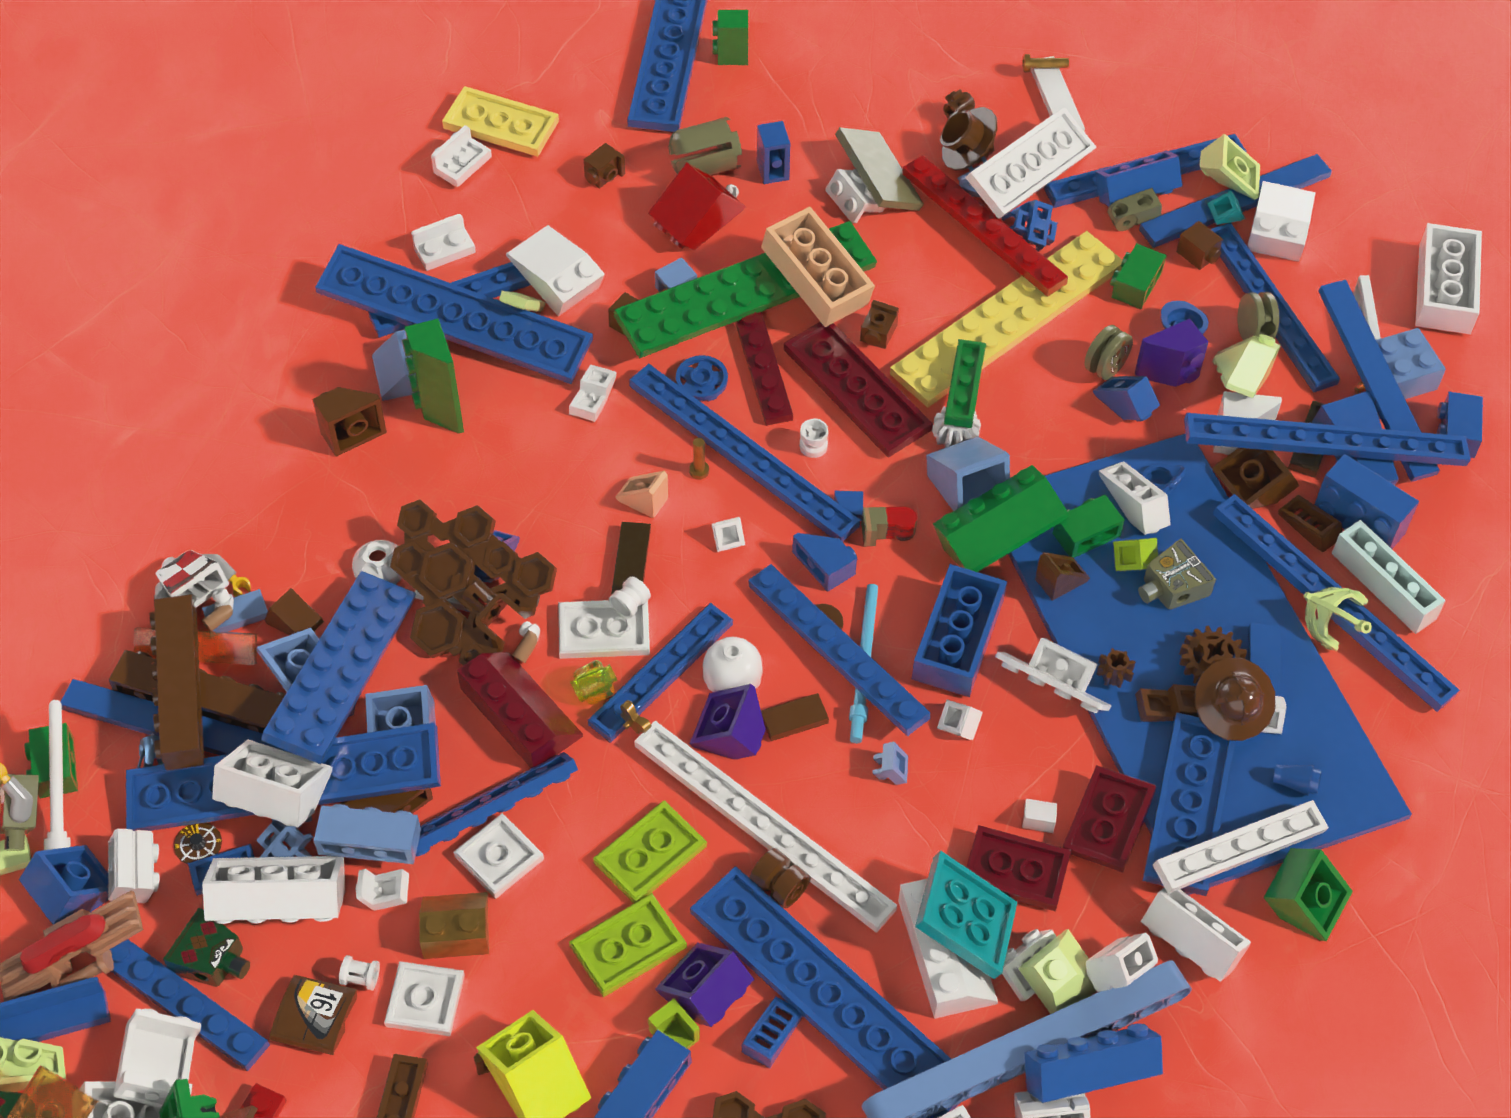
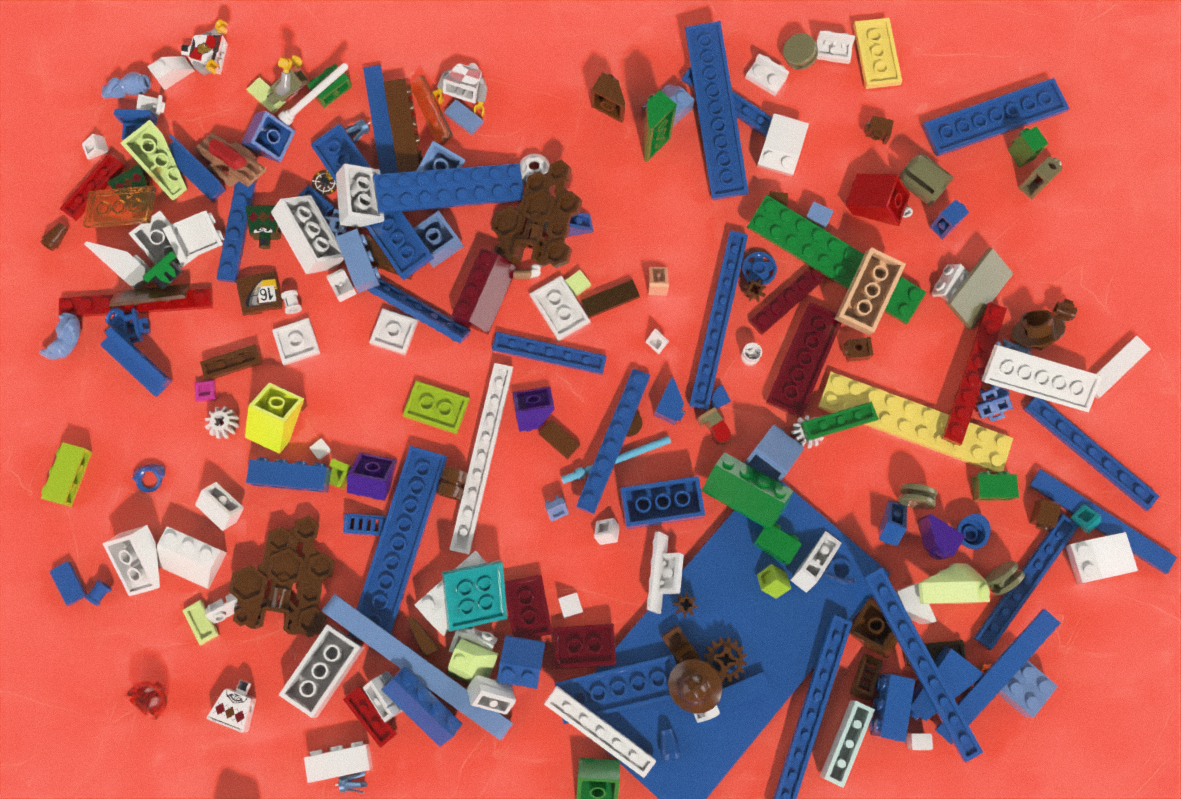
camera: 60 degrees right, 20 degrees up
(132, 864) = (290, 159): white brick -> none
(177, 683) = (394, 115): reddish brown brick -> none
(222, 609) = (457, 110): arm -> none
(292, 614) = (472, 147): reddish brown slope -> none
(440, 191) = (800, 51): none -> olive head
(454, 925) = (342, 331): pearl gold slope -> none
(522, 301) = (747, 141): yellowish green tile -> none
(582, 587) = (578, 283): none -> yellowish green tile
(593, 393) = (712, 216): white slope -> none
(594, 682) = (519, 322): clear neon green head -> none
(616, 1042) = (320, 449): none -> white piece
(627, 945) = (377, 425): lime tile -> none
(629, 597) = (580, 311): white wheel -> none
(632, 719) = (505, 355): pearl gold piece -> none
(699, 468) = (695, 300): pearl gold piece -> none
(730, 393) = (756, 285): none -> reddish brown gear
(732, 664) = (571, 390): white cylinder -> none
(779, 37) = (1047, 171): none -> olive torso
(986, 1025) = (424, 641): none -> reddish brown slope
(1029, 62) = (1138, 345): pearl gold piece -> none
(1059, 574) = (735, 544): reddish brown slope -> none
(1092, 906) = (521, 662): none -> blue slope
(1135, 209) = (1048, 460): olive leg -> none
(1154, 171) = (1075, 451): blue brick -> none
(1176, 578) = (769, 612): olive torso -> none
(1195, 933) = (534, 729): white brick -> none
(1231, 166) = (1123, 507): yellowish green slope -> none
(1326, 604) = (792, 712): yellowish green helmet -> none
(1365, 300) = (1056, 645): white tile -> none
(1425, 495) = (919, 741): none -> white slope
(1449, 278) = (1118, 690): white brick -> none
(1462, 416) = (1000, 743): blue brick -> none

